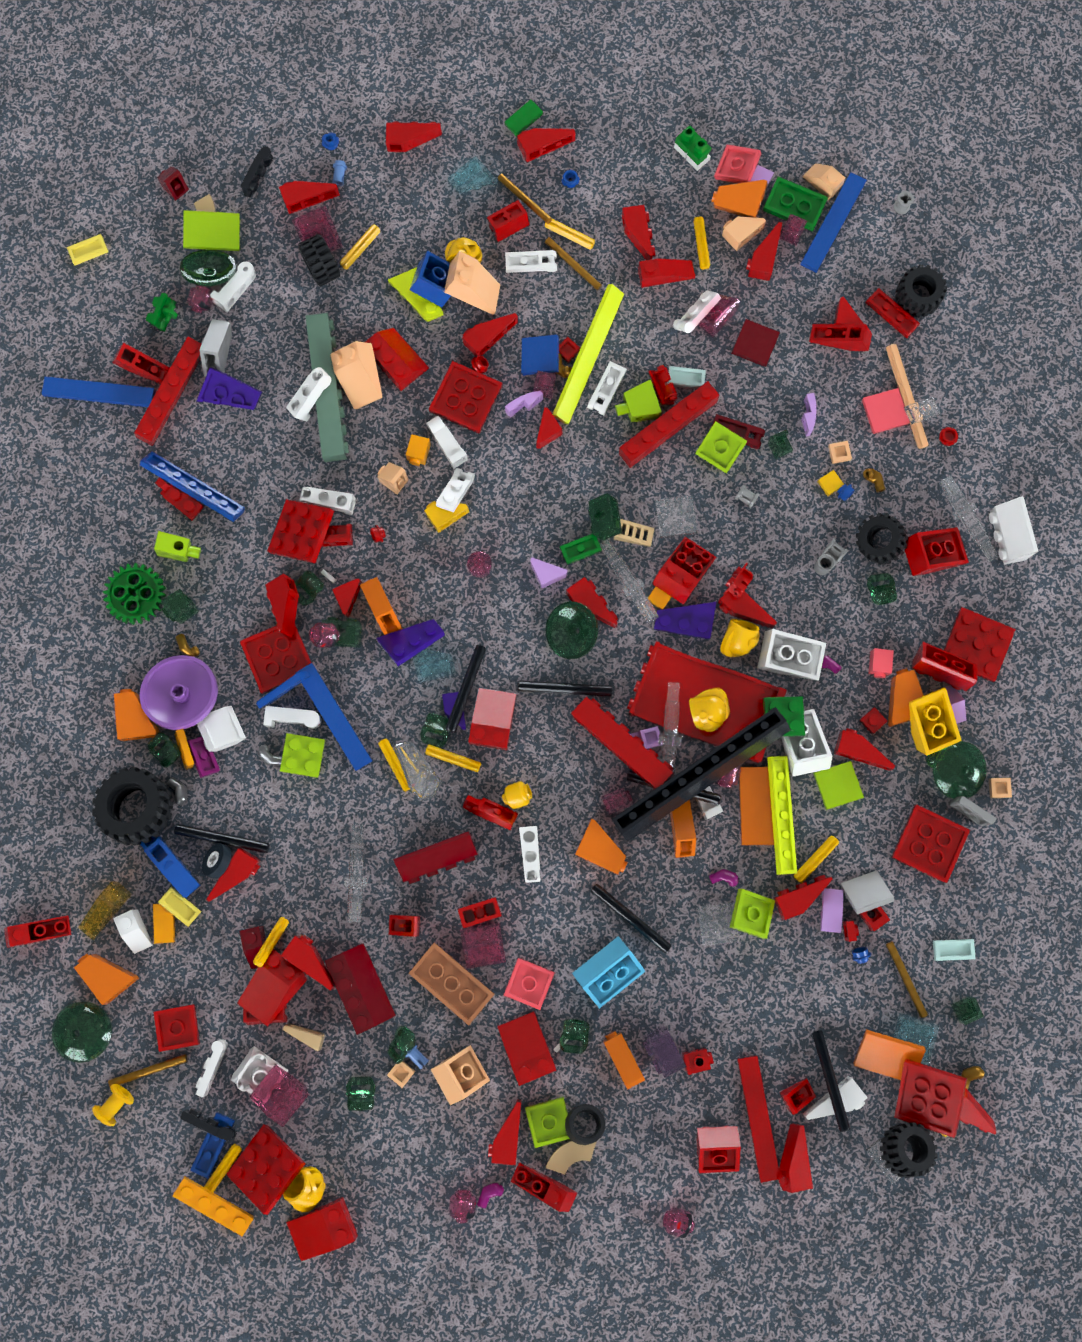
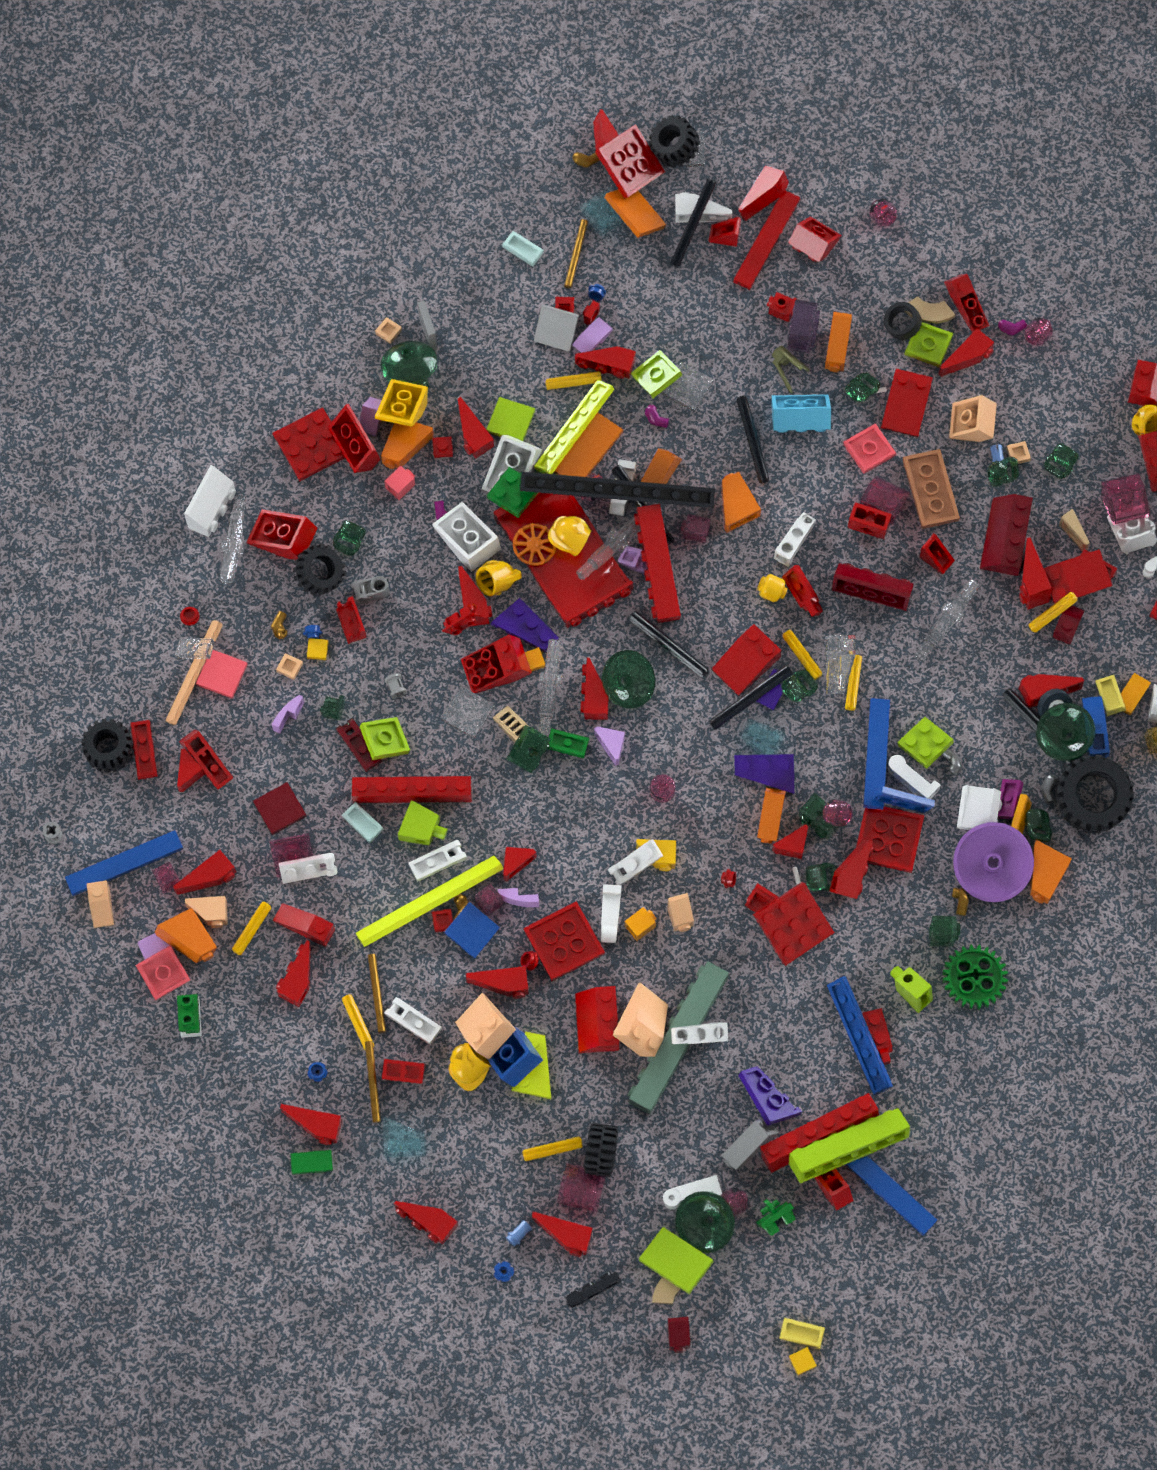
camera: 145 degrees left, 10 degrees down
(73, 231) = (802, 1361): none -> yellow tile
(139, 393) = (849, 1145): none -> lime brick
(189, 828) = (1059, 722): none -> clear green dish
(331, 499) = (750, 937): white leg -> none
(661, 1013) = (783, 357): none -> olive plant
(665, 392) = (387, 833): red hinge -> none
(733, 685) = (533, 544): none -> orange wheel
(794, 199) = (143, 901): green plate -> none
(823, 523) = (350, 620): none -> red hinge
(930, 843) = (476, 329): red plate -> none
(967, 1010) = (550, 200): clear green panel -> none

